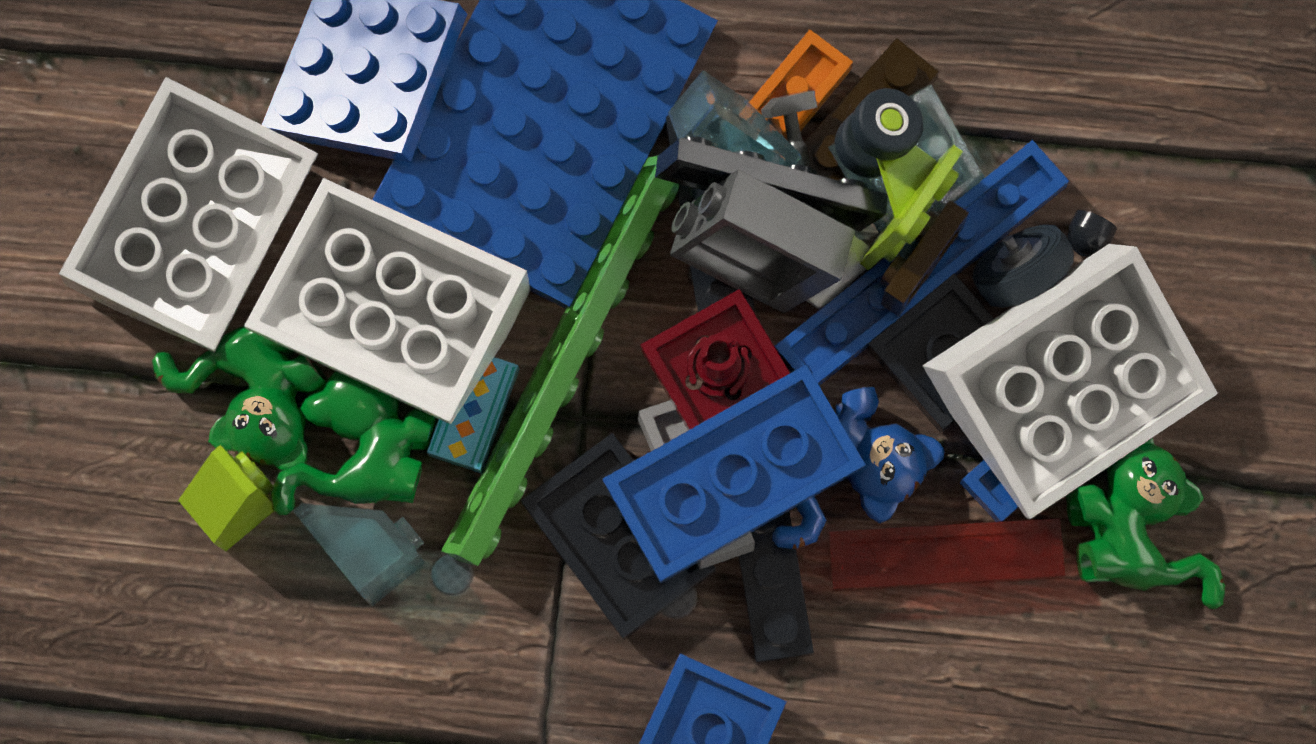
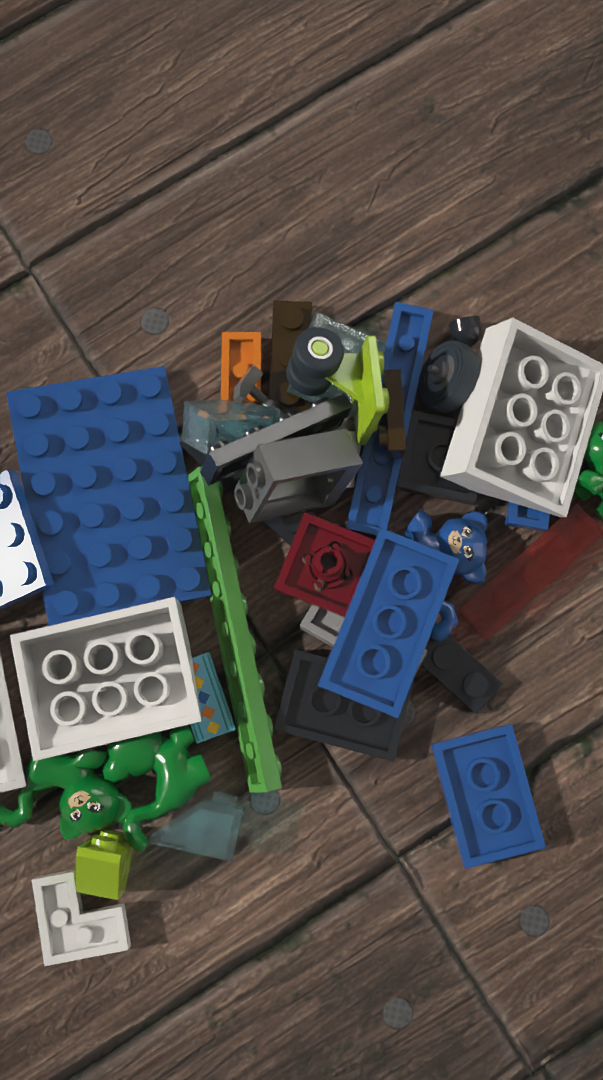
camera: 45 degrees left, 5 degrees up
(136, 539) = (70, 932): none -> white plate

